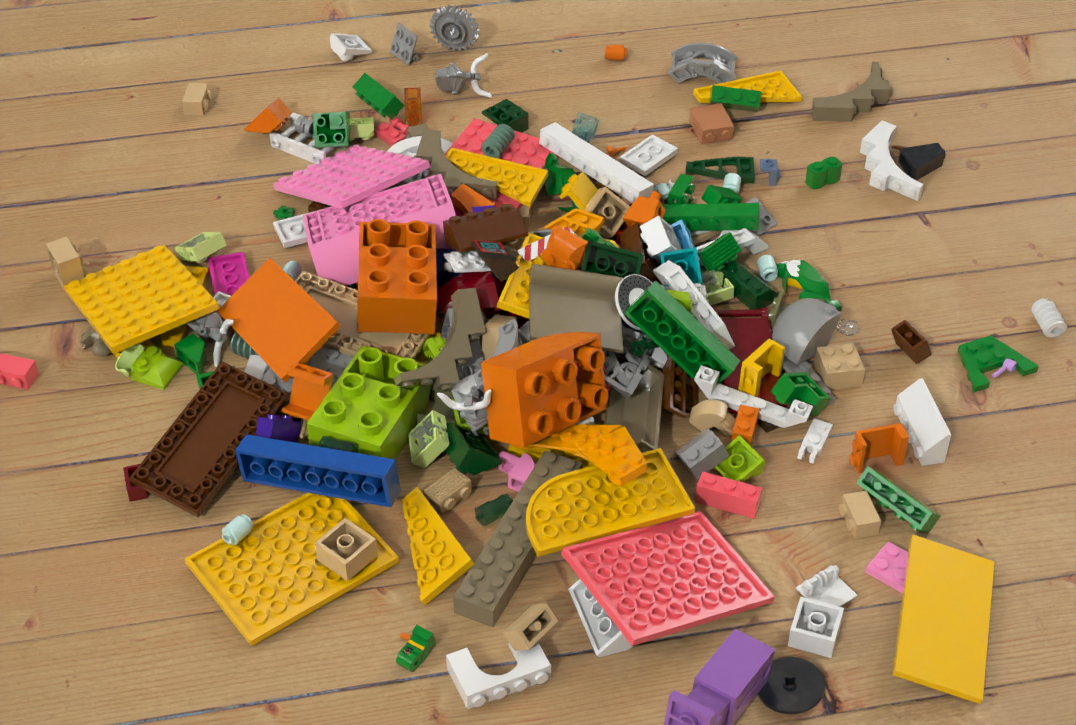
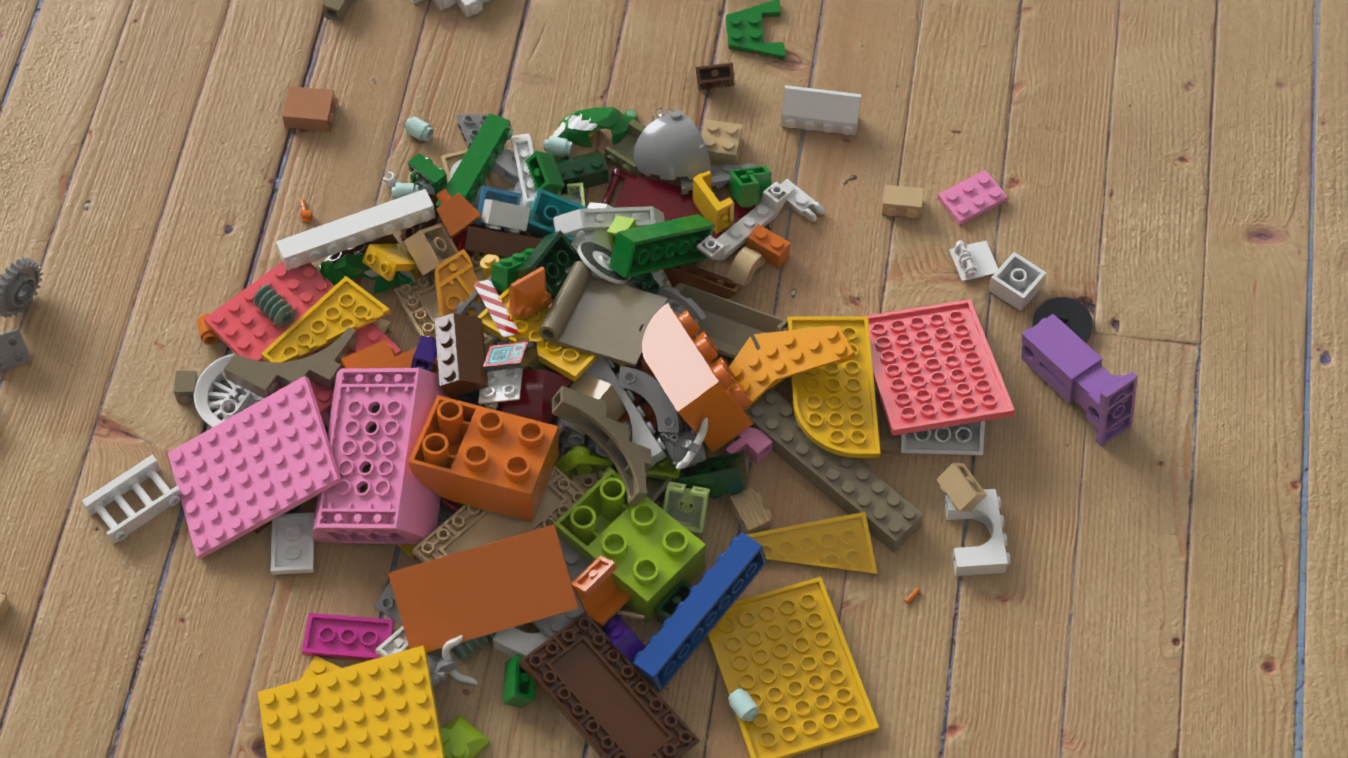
camera: 70 degrees left, 15 degrees up
(192, 353) = (457, 698): green slope -> none
(200, 247) = (280, 645): yellowish green piece -> none
(270, 118) = (82, 529): orange slope -> none
(283, 213) = (249, 558): green plant -> none
(293, 269) = (367, 574): light aqua brick -> none
(304, 125) = (121, 492): light grey wheel -> none
(331, 129) = (148, 463): green slope -> none
(343, 445) = (683, 584): clear green piece -> none
(346, 549) = (810, 613): tan brick -> none
(362, 128) = (135, 441): yellowish green slope -> none
(377, 97) = (98, 404): green brick -> none
(389, 132) = (160, 415): coral plate -> none
(413, 106) = (138, 374): clear orange brick -> none
(416, 649) = (934, 592): green leg -> none
(454, 79) = (106, 318): light grey helmet -> none
(493, 509) = (789, 480): clear green piece -> none
(509, 114) = (201, 288): dark green slope -> none
(585, 126) = (260, 226): clear light blue slope -> none
(615, 52) = (132, 149): orange brick -> none
(648, 155) = (331, 182): white plate -> none
(702, 453) = (786, 290): light grey slope -> none
(717, 195) = (444, 144): green brick -> none
(718, 69) = (203, 56): light grey fence -> none
(728, 495) = (844, 289): coral brick -> none
(735, 98) = (285, 72): green brick -> none
(742, 462) = (808, 267): lime slope -> none
(744, 168) = (393, 107): dark green plate -> none
(770, 166) = (417, 86): sand blue bracket -> none
(773, 88) = (269, 48): yellow wing -> none
(823, 172) = (441, 45): green brick -> none
(879, 442) = (839, 144): orange panel -> none
(898, 499) = (900, 166): green brick -> none
(944, 619) = (1037, 188): yellow tile -> none
(1008, 365) = (768, 18): lavender hand -> none

